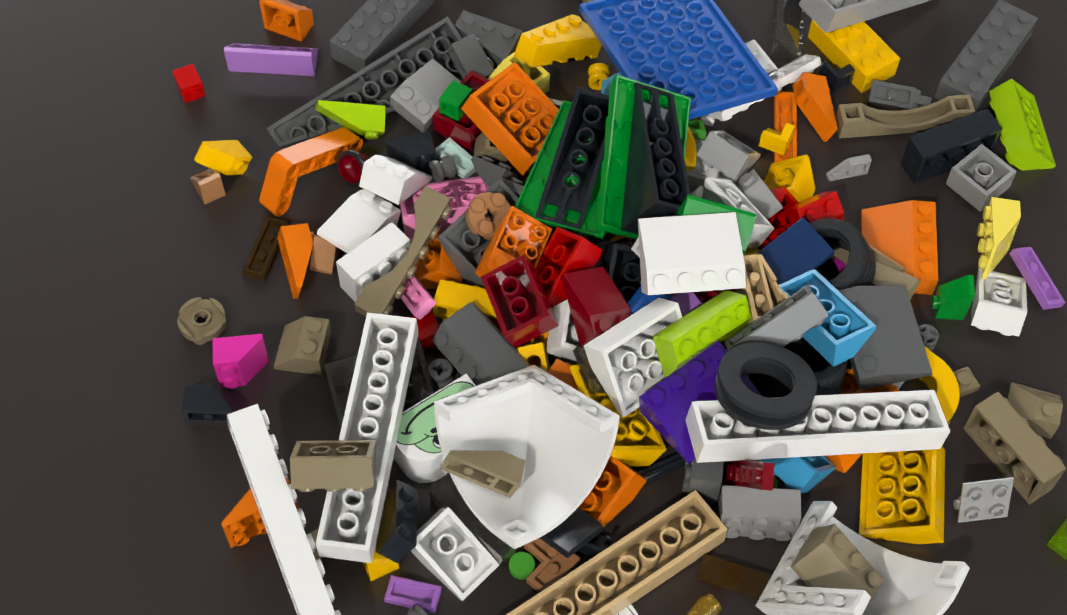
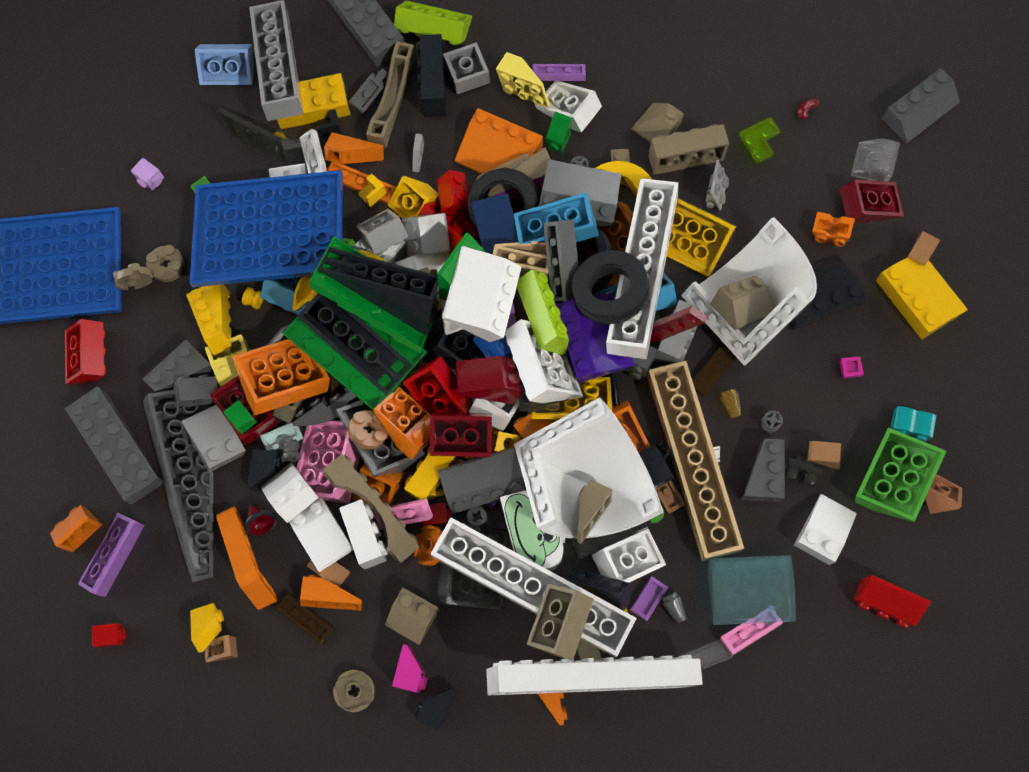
camera: 65 degrees left, 15 degrees up
(357, 117) = (216, 498): lime slope -> none
(727, 193) = (435, 246): white slope -> none

